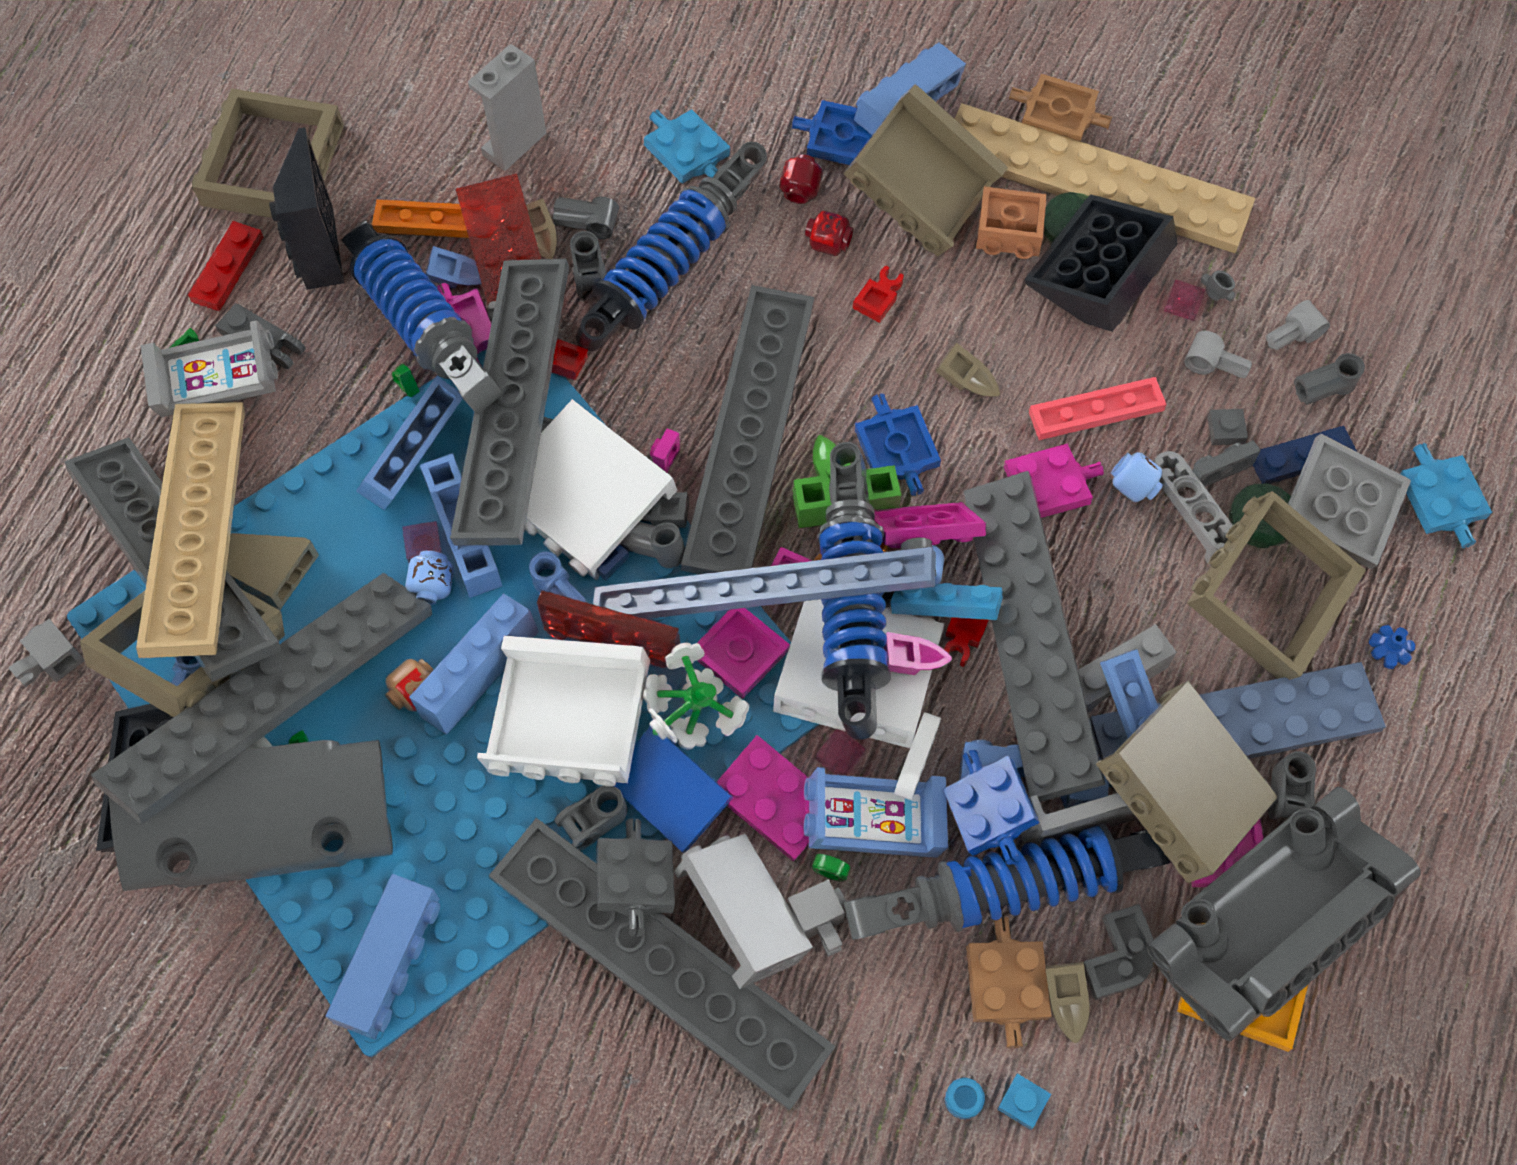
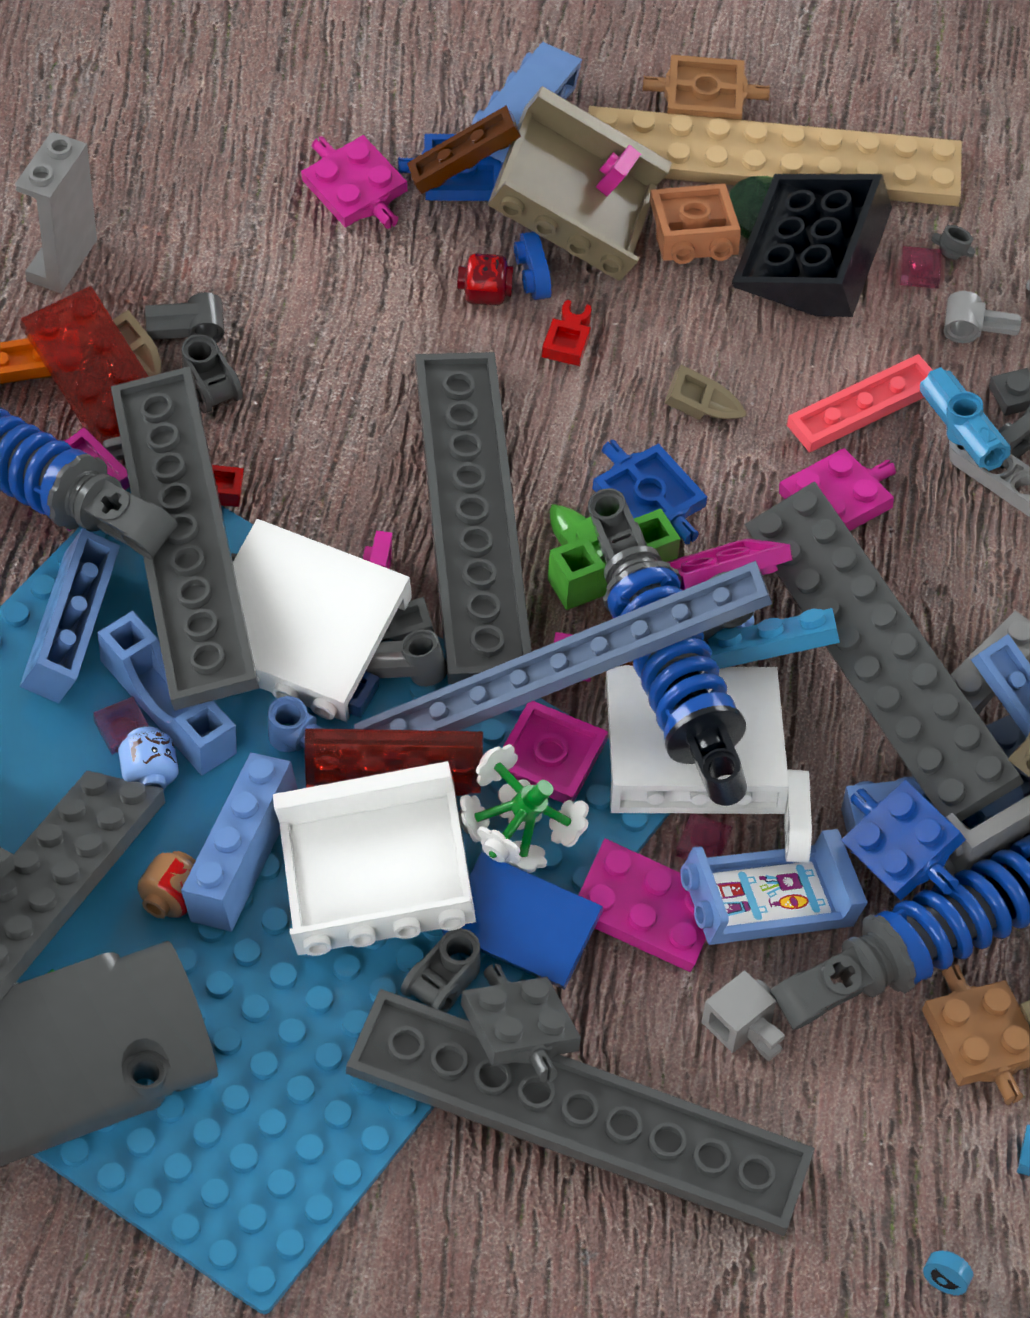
camera: 20 degrees left, 10 degrees down
(383, 957) = (251, 1189): medium blue brick -> none
(404, 379) = (30, 550): green tile -> none
(452, 268) = (43, 411): medium blue plate -> none
(669, 248) = (303, 335): piece -> none
(686, 145) = (278, 219): dark azure plate -> none
(746, 907) = (663, 1023): panel -> none
(758, 121) = (354, 181): none -> dark pink plate
(800, 179) = (430, 226): dark red head -> none
(831, 867) = (737, 958): green tile -> none
(842, 122) = (464, 150): none -> reddish brown plate
(869, 240) = (536, 271): none -> blue plate
(912, 654) = (761, 702): plate -> none
(959, 164) = (616, 169): none -> dark pink plate
(964, 633) = (801, 675): red plate -> none
(964, 1098) = (977, 1169): dark azure tile -> none
(1137, 477) = (936, 465): light blue head -> none
(1172, 445) = (965, 419): none -> dark azure piece

